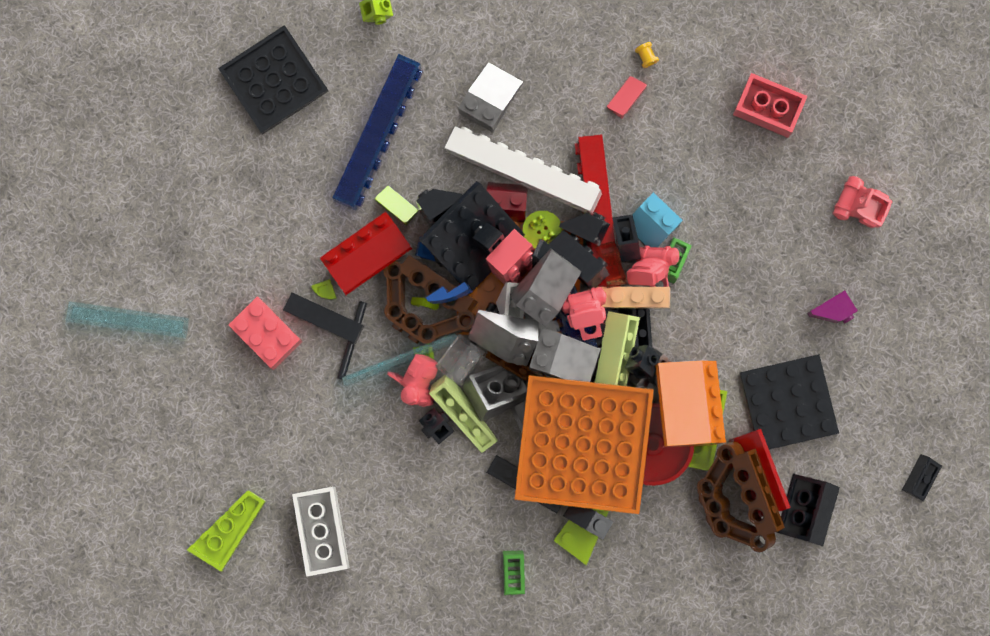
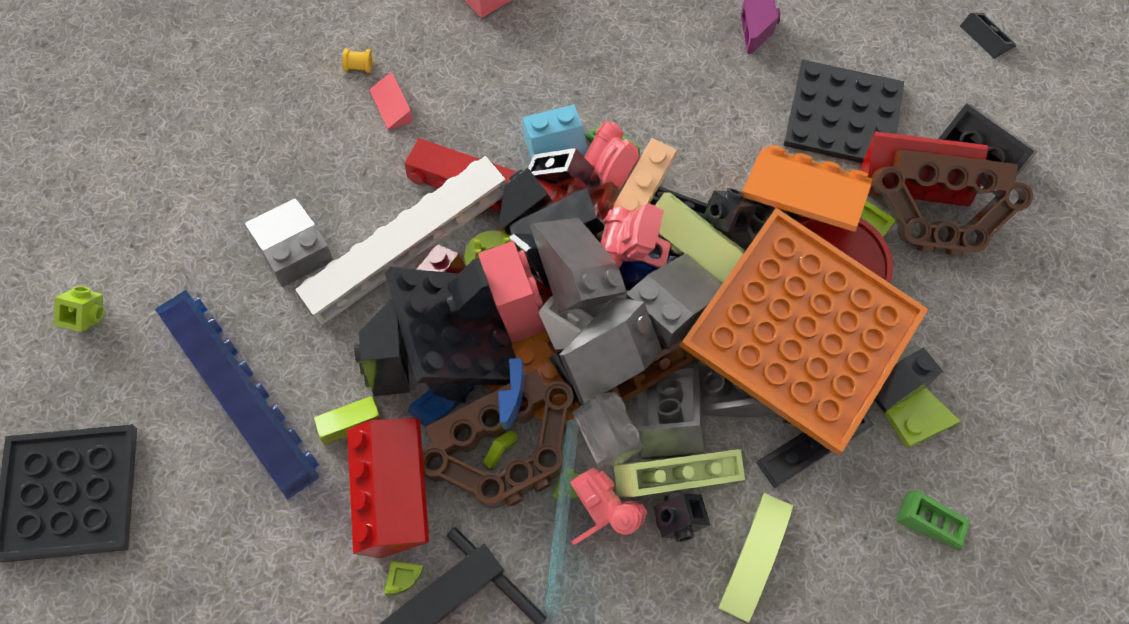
camera: 70 degrees left, 20 degrees down
(439, 479) = (756, 558): none -> yellowish green slope

